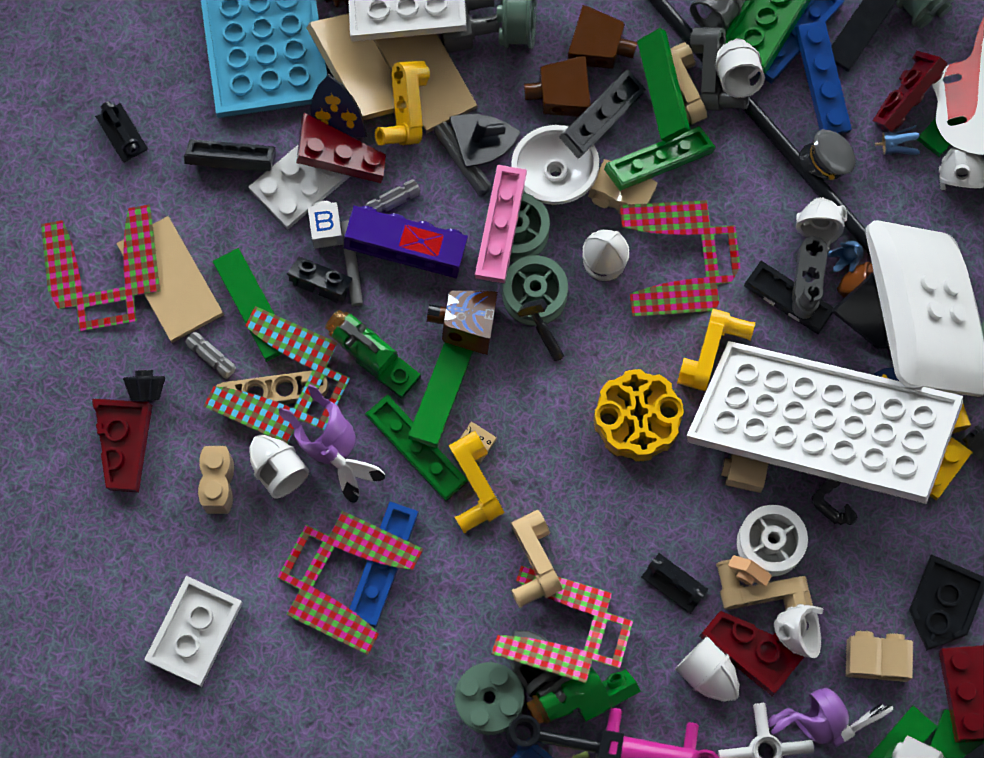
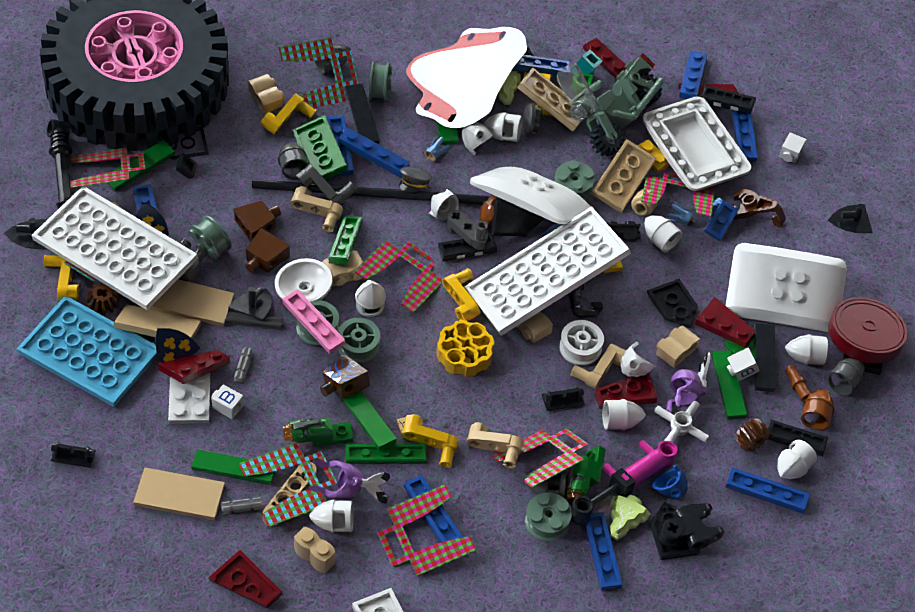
camera: 55 degrees left, 20 degrees down
(139, 269) = (129, 544): piece -> none
(144, 386) = (228, 545): black piece -> none
(230, 155) = (141, 415): black plate -> none
(310, 275) = (245, 428): black hinge -> none
(352, 271) = (263, 411): light grey bar -> none
(405, 241) = (274, 373): dark purple brick -> none
(406, 81) = (194, 308): yellow beam -> none
(534, 308) = (371, 341): black piece -> none
(602, 113) = (298, 243): black tile -> none
(663, 85) = (311, 209): green tile -> none
(736, 65) = (334, 170): white helmet -> none
(749, 571) = (589, 359): light nougat plate -> none
(849, 253) = (470, 208): flat silver piece -> none
(914, 83) = (415, 122): dark red wing -> none

